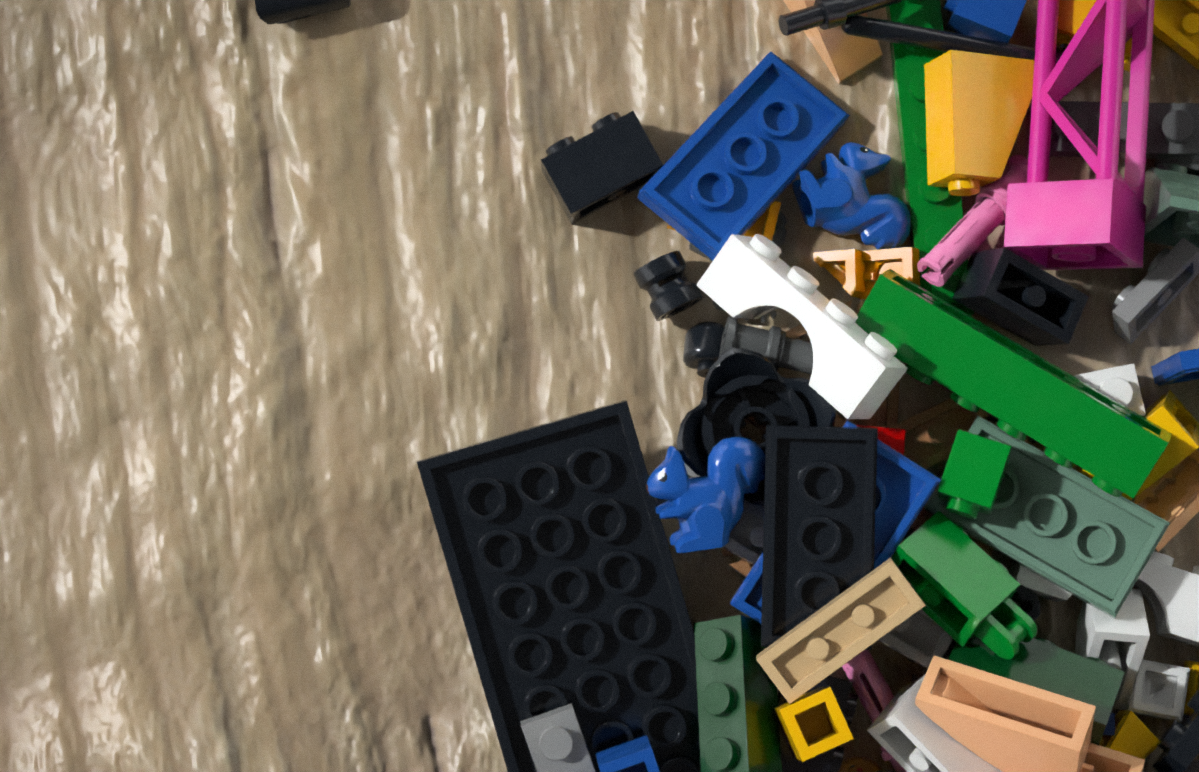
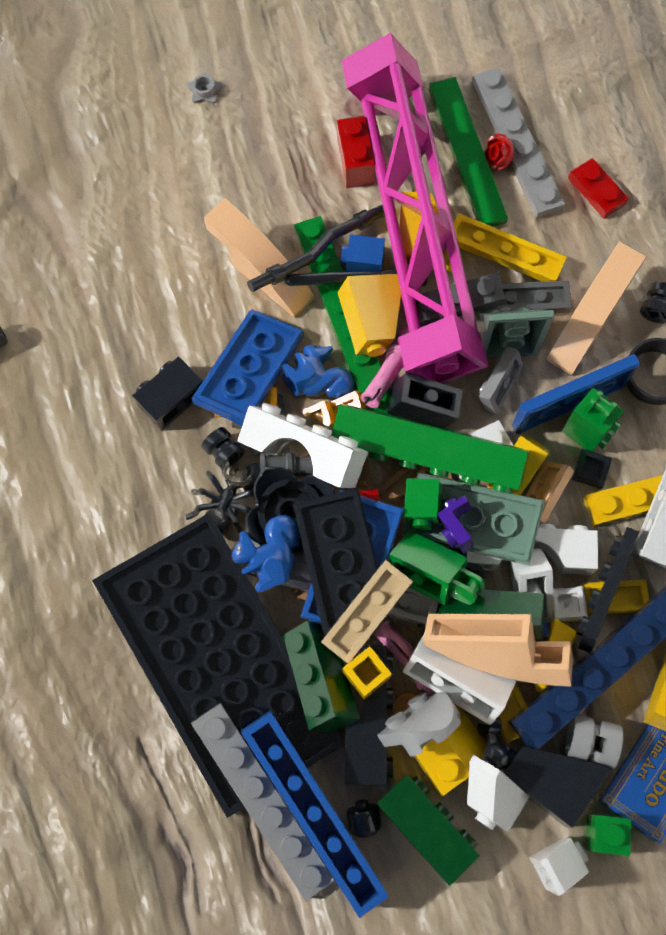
camera: 10 degrees left, 10 degrees down
(647, 385) = (223, 507): none -> animal
(1011, 536) = (454, 531): none -> dark purple bracket

